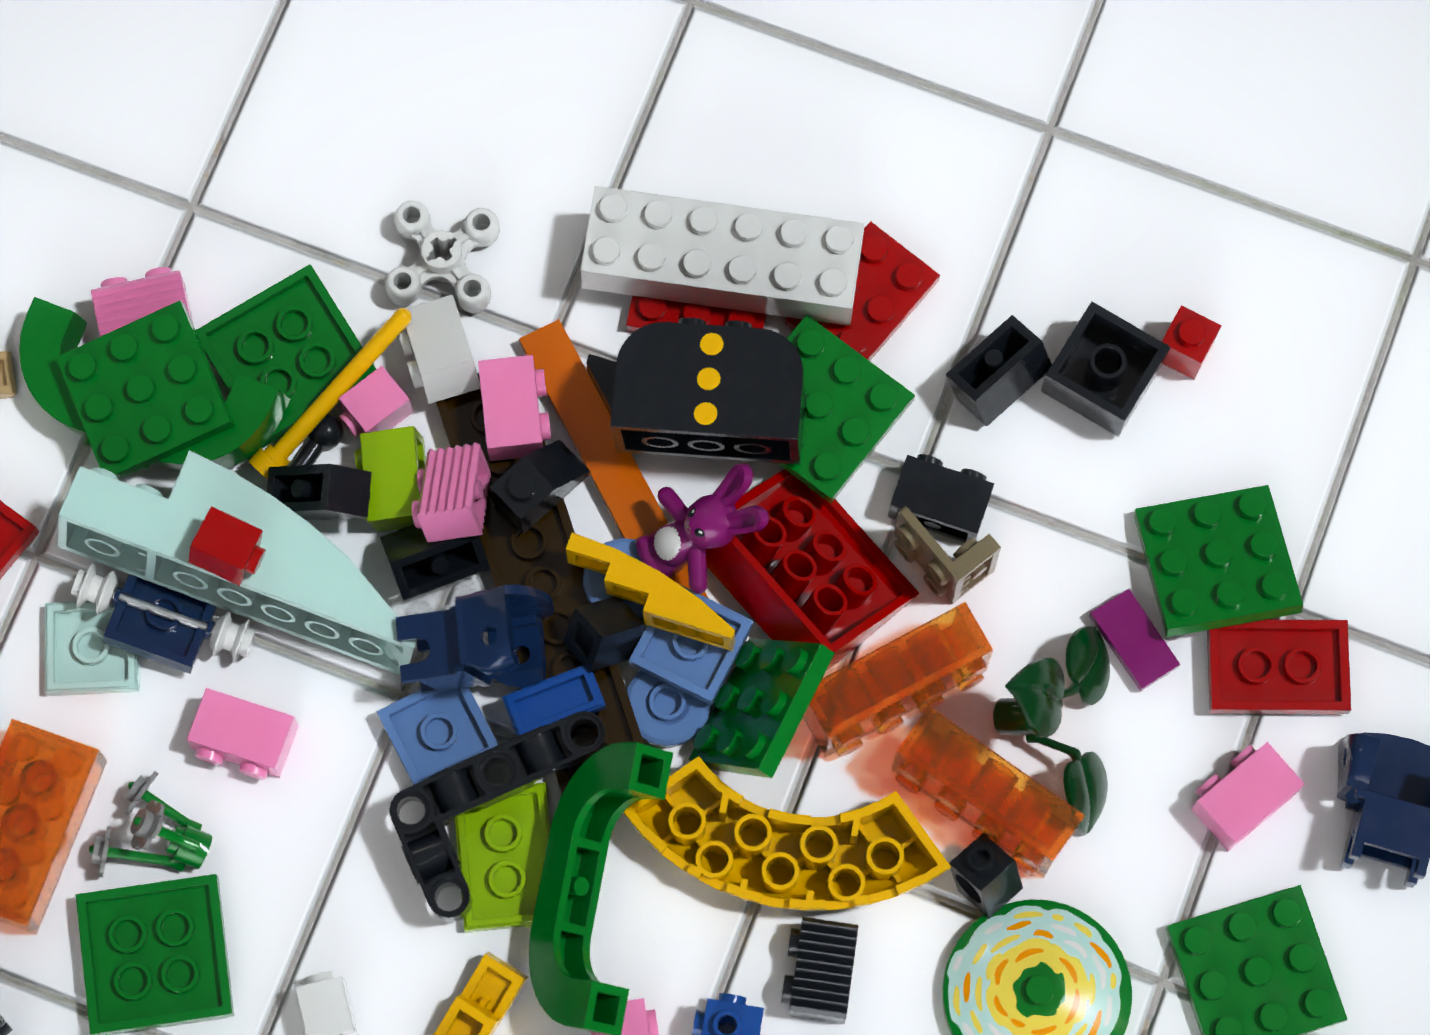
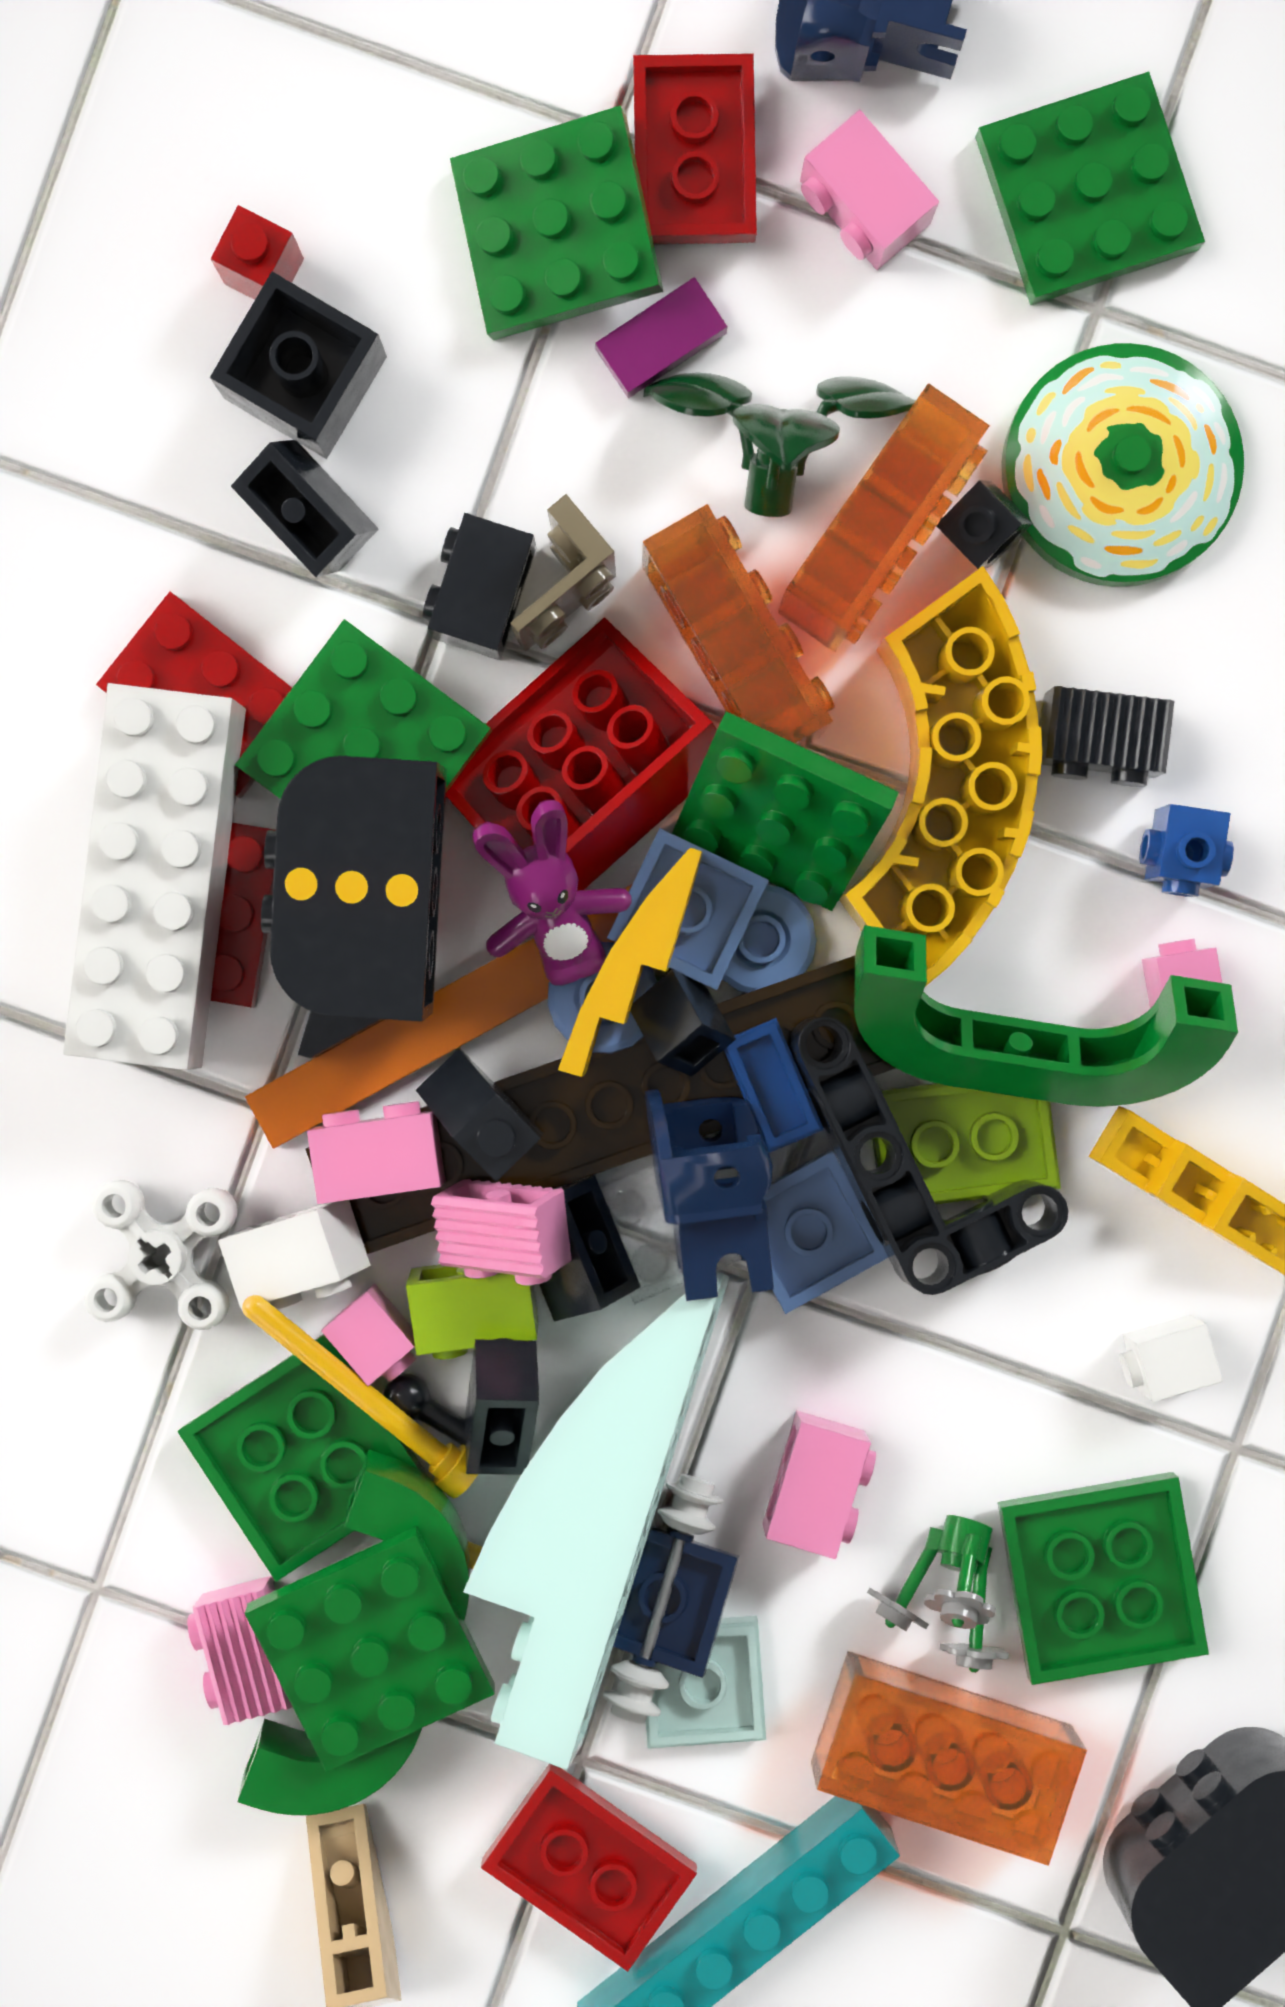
camera: 90 degrees left, 15 degrees up
(227, 546) = (606, 1537): red brick -> none

